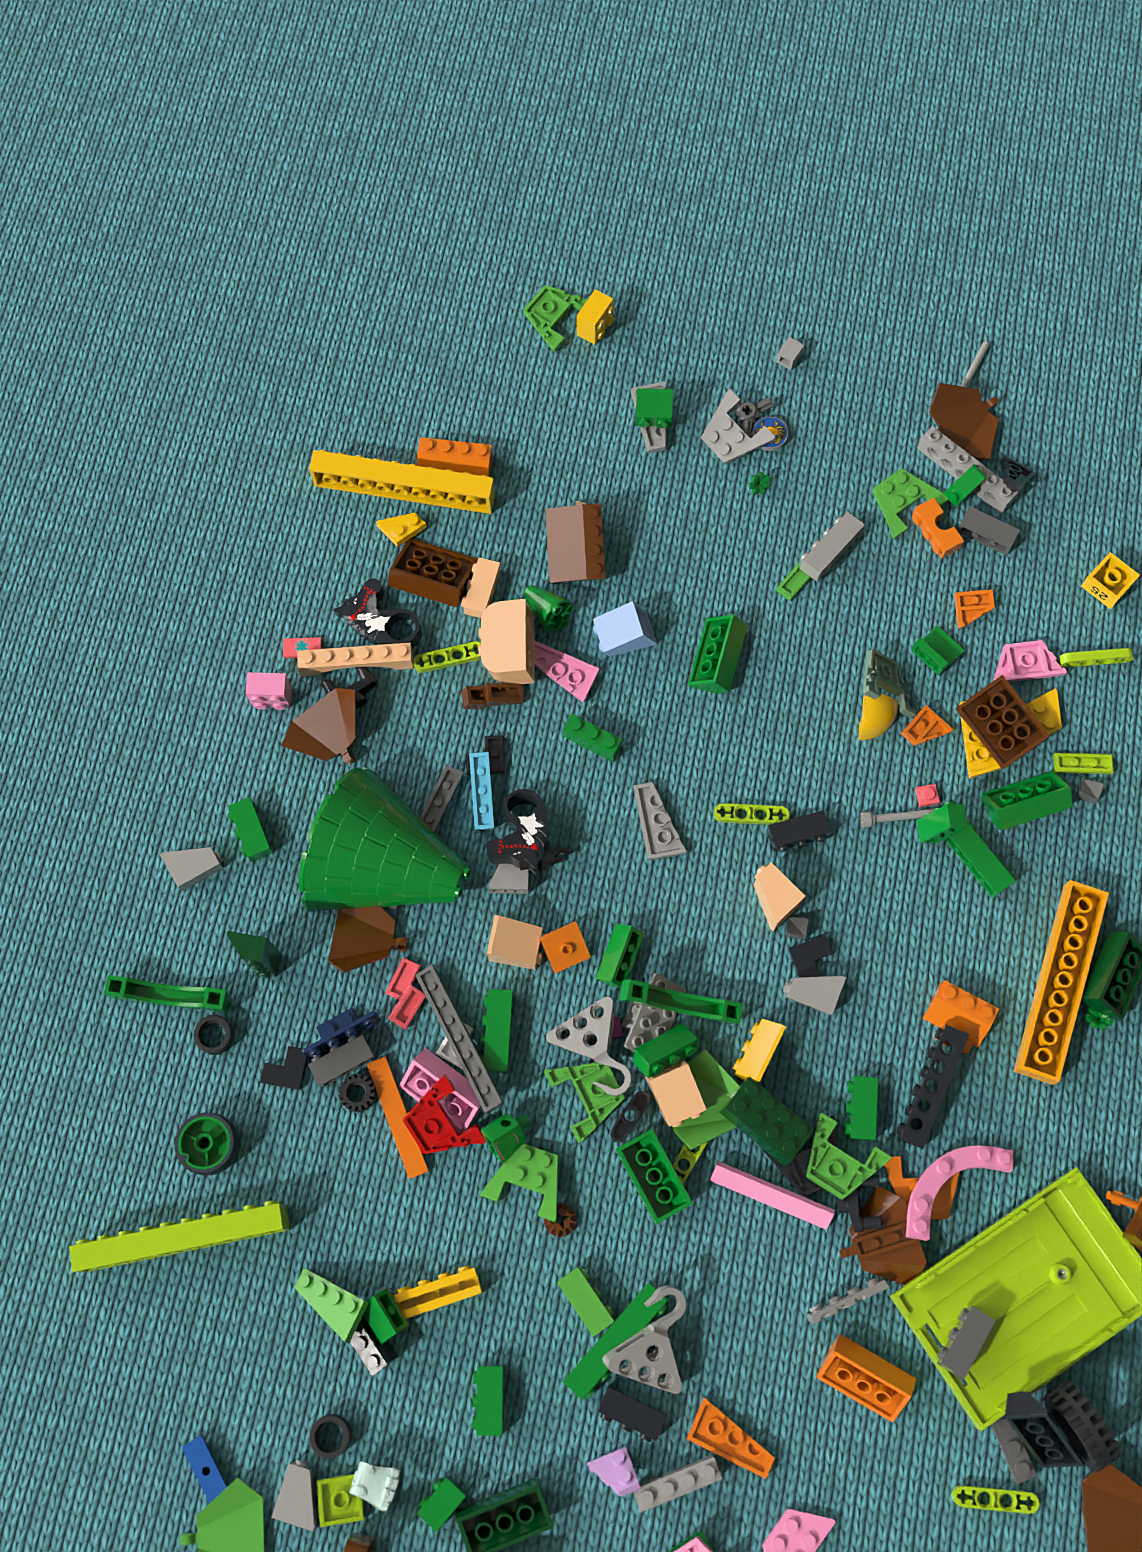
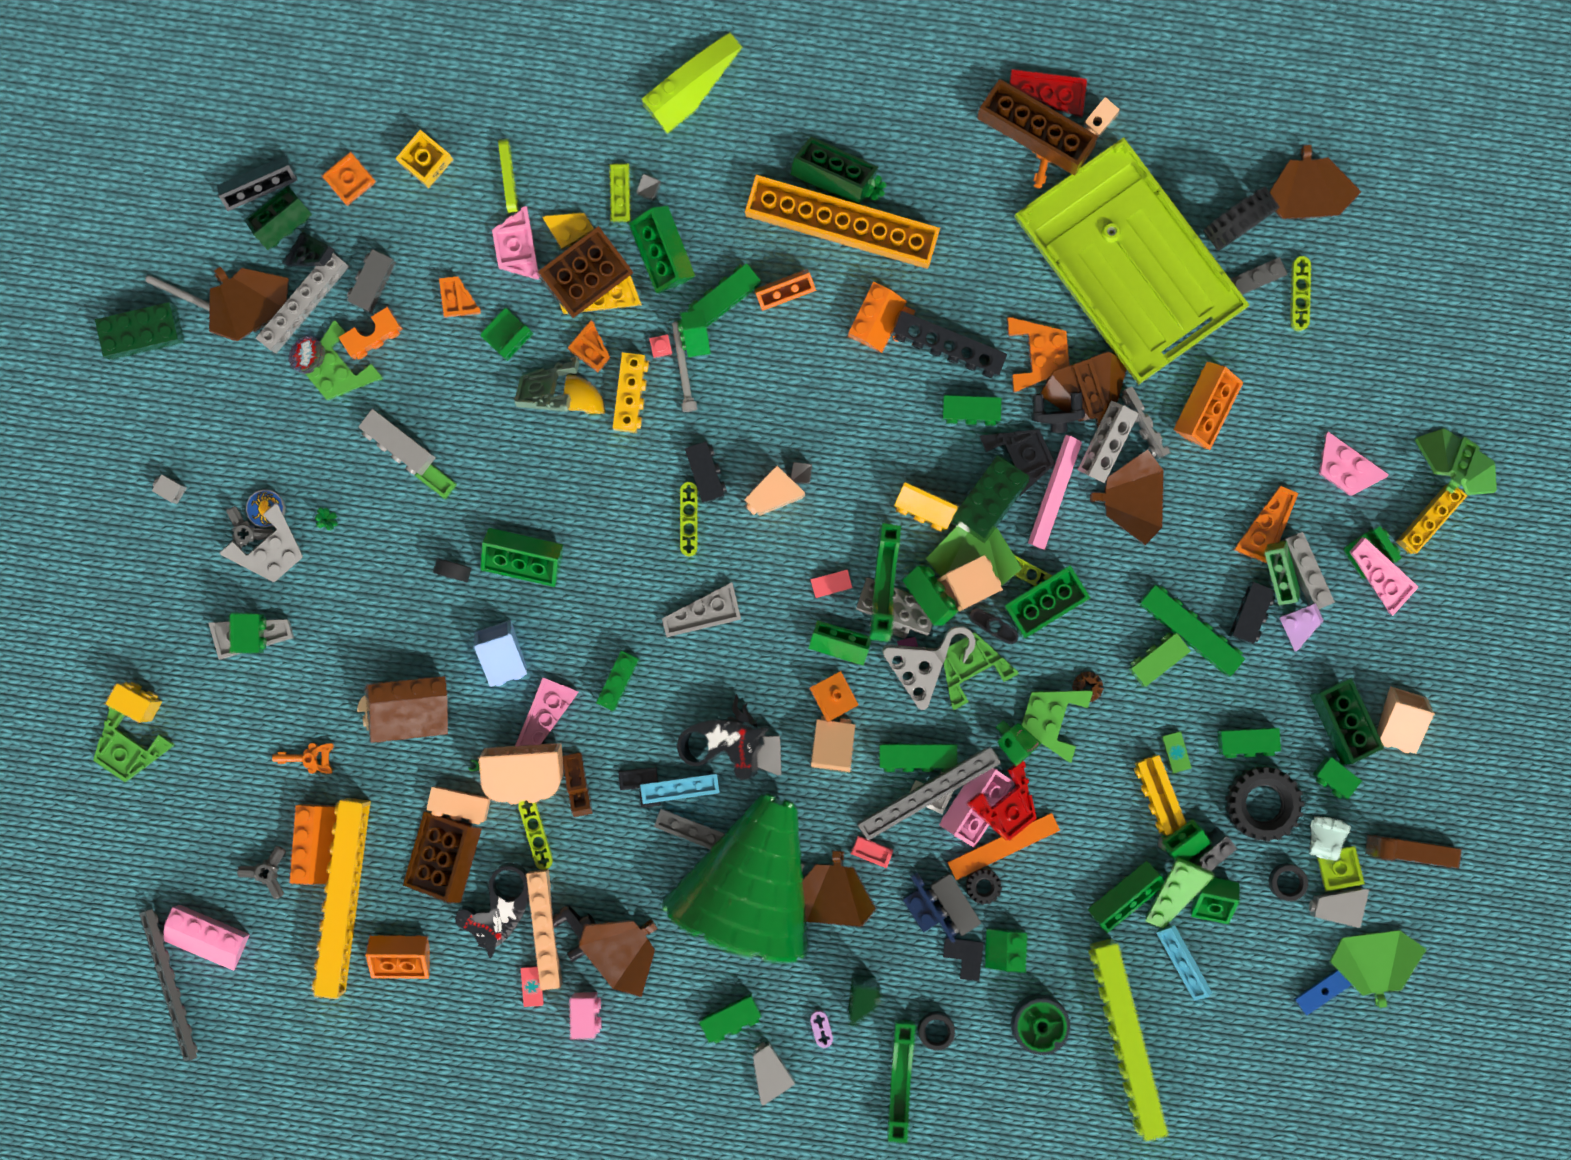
camera: 90 degrees left, 15 degrees up
(230, 923) = (826, 1027): none -> lavender beam
(254, 1308) = (1184, 962): none -> medium azure plate
(288, 1113) = (1006, 950): none -> green slope
(318, 1349) = (1216, 901): none -> green slope
(329, 342) = (170, 990): none -> dark grey plate
(331, 1246) = (1126, 896): none -> green brick
(342, 530) = (398, 956): none -> orange slope
(378, 370) = (205, 936): none -> bright pink slope
(390, 1410) = (1290, 803): none -> black tyre
(402, 527) = (392, 894): yellow wing -> none
(407, 1006) = (899, 845): coral tile -> none
(431, 422) = (270, 879): none -> dark grey bush
(483, 1315) = (1176, 752): none -> bright green tile
(534, 462) = (309, 758): none -> orange piece
(548, 607) = (478, 734): green cone -> none
(662, 1357) = (1198, 611): light grey piece -> none
(676, 1451) = (1282, 573): none -> green brick
(681, 952) = (831, 583): none -> coral tile
(707, 589) = (452, 570): none -> black tyre
(765, 1286) = (1135, 497): none -> reddish brown panel
(806, 954) = (829, 465): black tile -> none
(815, 992) = (864, 454): light grey slope -> none
(823, 1246) = (1108, 441): none -> light grey brick
(836, 1169) = (1030, 434): bright green wing -> none
(880, 762) = (629, 392): none -> yellow brick
(916, 471) = (306, 354): none -> tile
(937, 333) = (139, 331): none -> dark green brick
(939, 1171) = (1026, 339): bright pink plate -> none
(964, 485) = (323, 305): green slope -> none
(965, 1341) = (1177, 319): dark grey brick -> none
(988, 918) = (785, 289): none -> orange brick
(1040, 1432) = (1248, 255): black slope -> none
(1047, 452) = (278, 217): none -> dark green slope
(1080, 434) = (257, 183): none -> black brick
(1087, 515) = (348, 178): none -> orange plate

